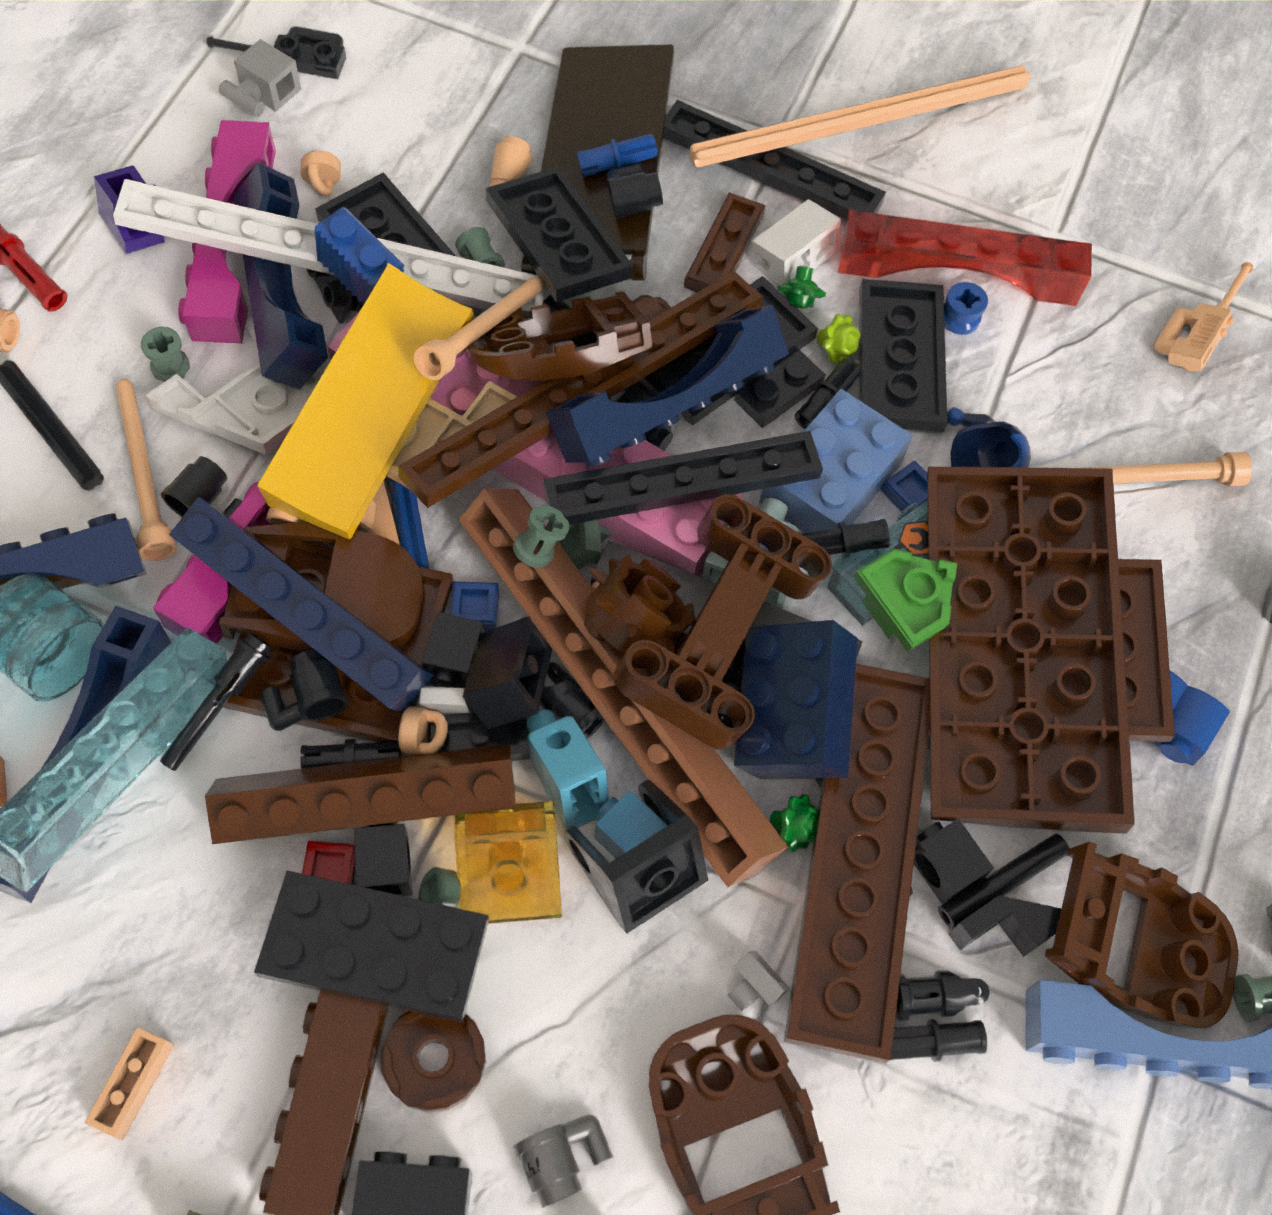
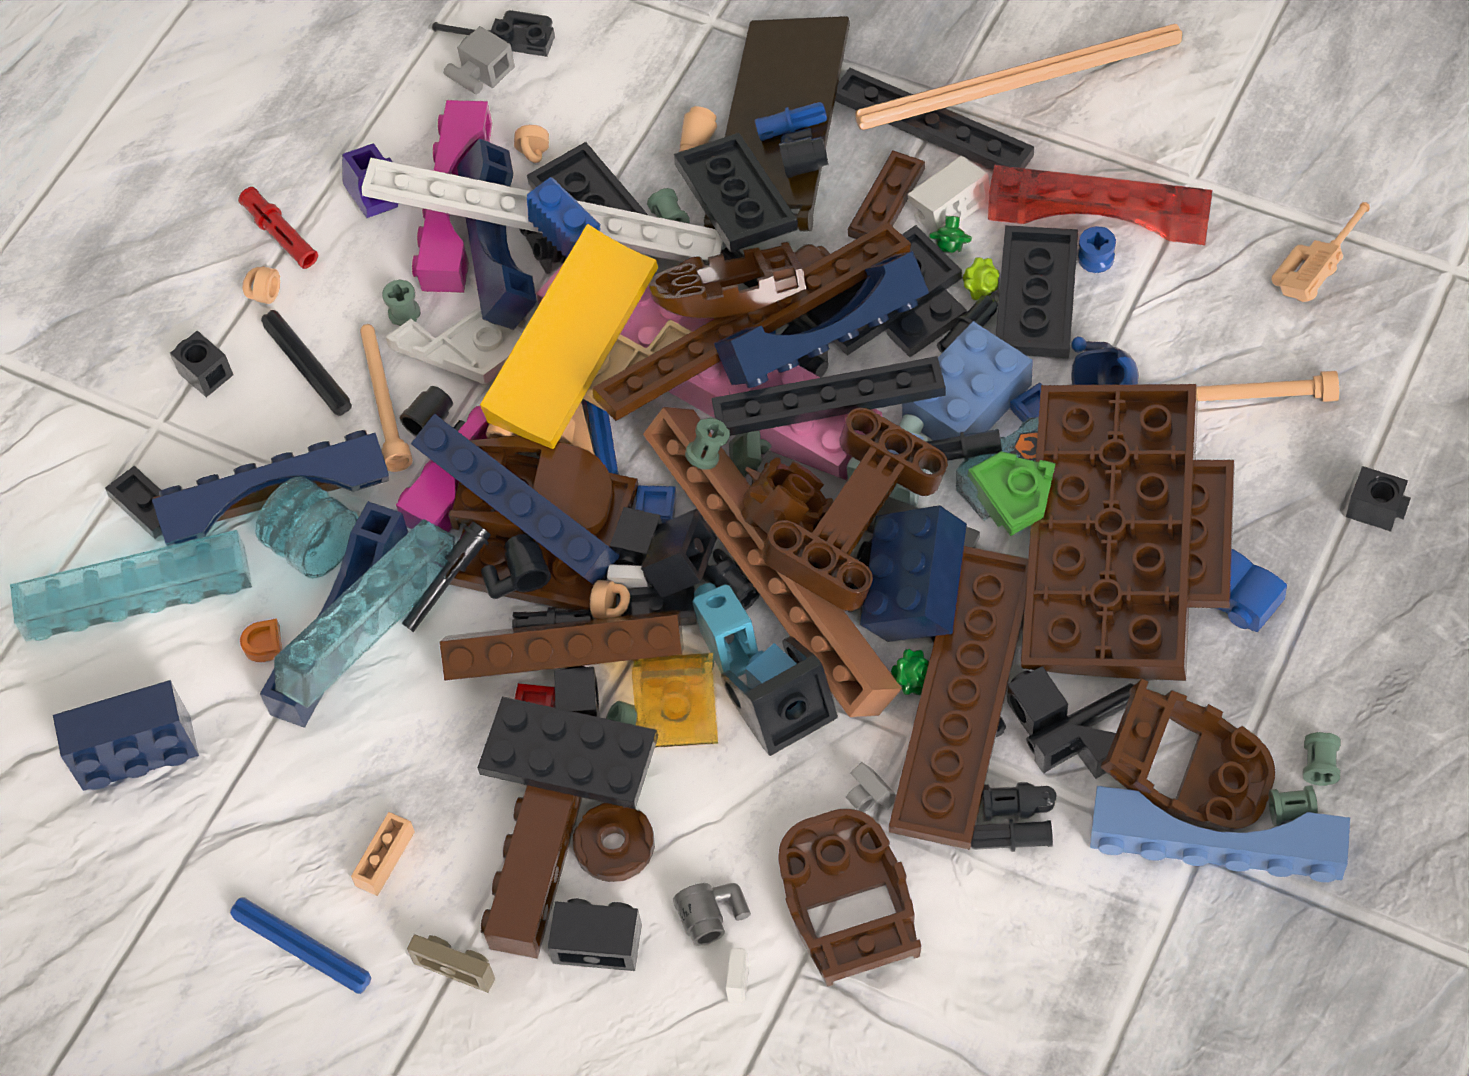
camera: 15 degrees right, 5 degrees down
(438, 356) = (626, 299): light nougat piece -> none

